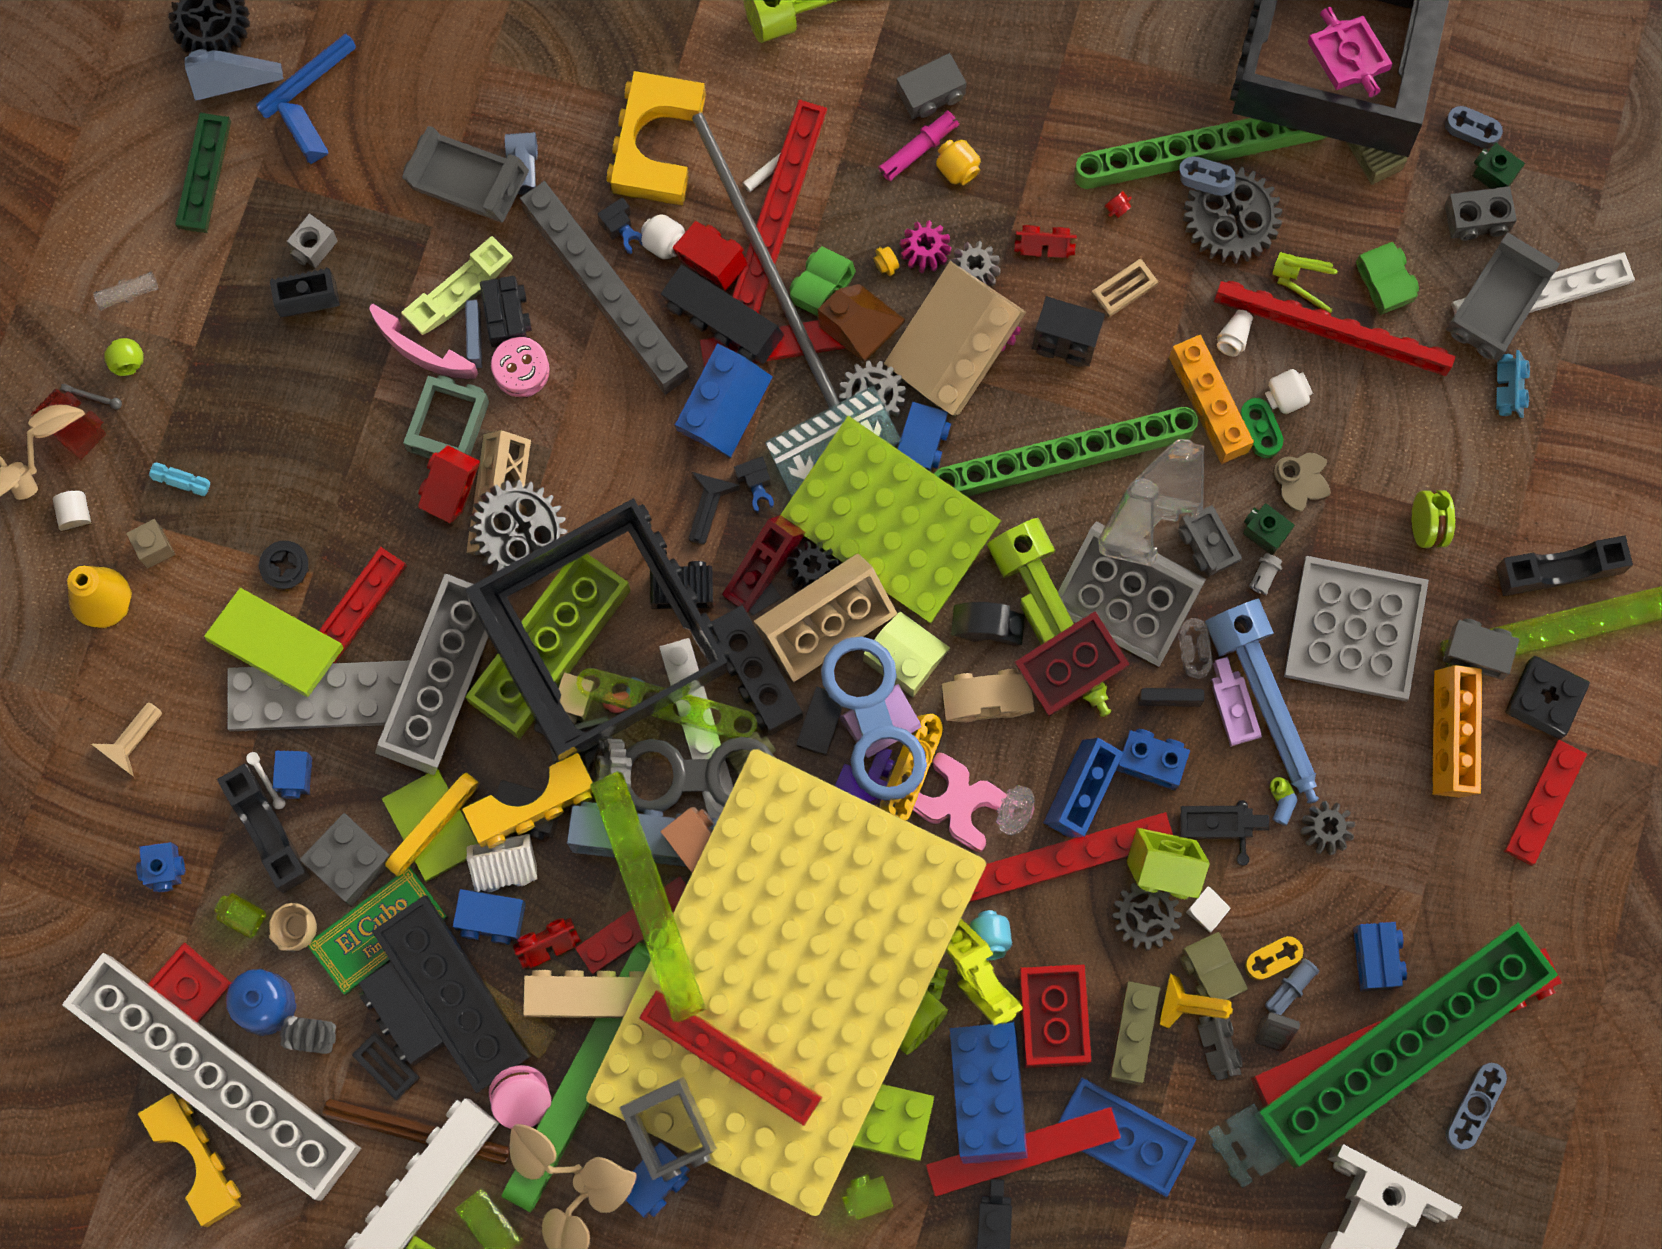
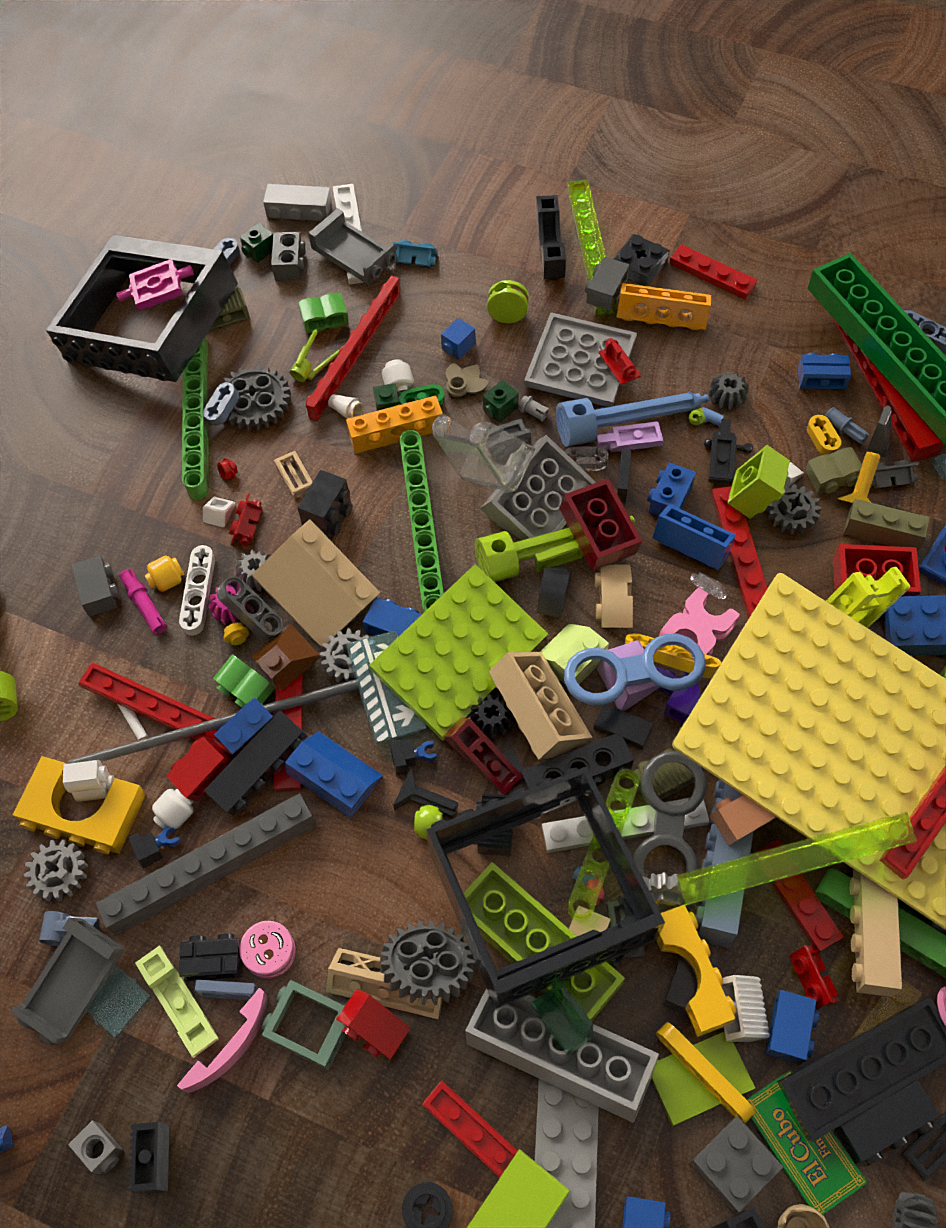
camera: 80 degrees left, 15 degrees down
(455, 229) = (118, 1002): none -> clear light blue piece
(463, 667) = (563, 1017): none -> clear green panel
(578, 120) = (49, 859): none -> light grey gear
(675, 513) = (425, 818): none -> lime piece
(680, 138) = (87, 780): none -> white brick
(759, 292) = (243, 726): none -> blue brick
(900, 279) = (262, 611): none -> dark grey beam
(944, 210) = (193, 589): none -> white beam
(1058, 206) = (217, 511): none -> white slope
(1245, 382) = (385, 396): none -> dark green brick
(1346, 677) = (618, 362): none -> red hinge
(1365, 461) = (458, 338): none -> blue brick
(1581, 209) = (297, 202): none -> brick

